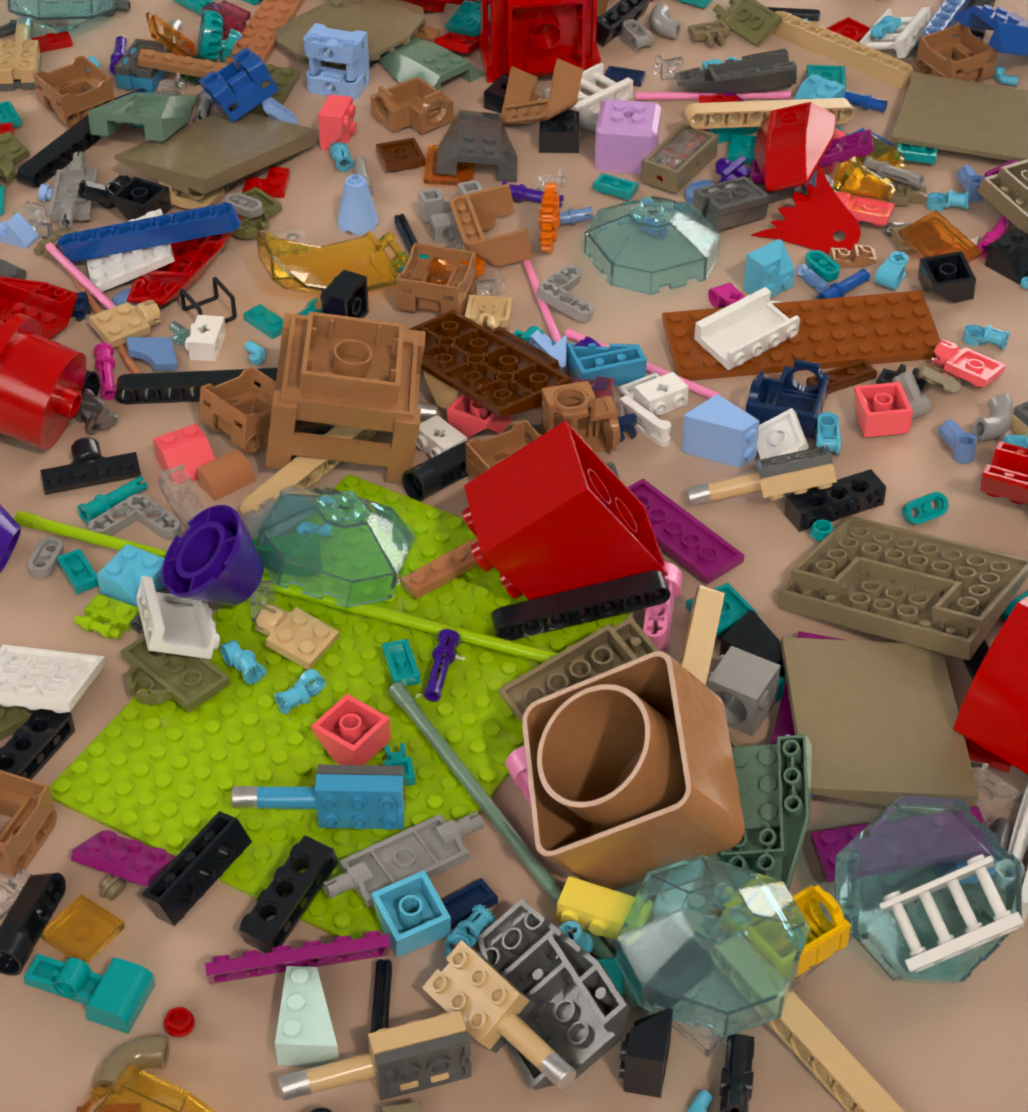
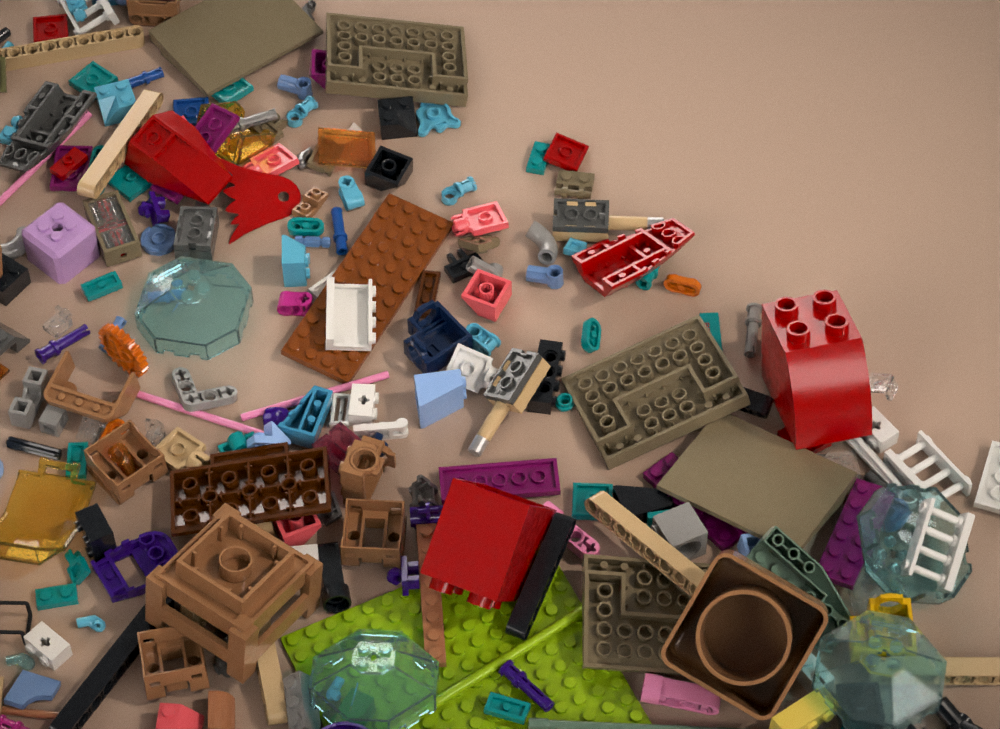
camera: 55 degrees left, 10 degrees up
(997, 232) = (364, 117): dark pink pin -> none

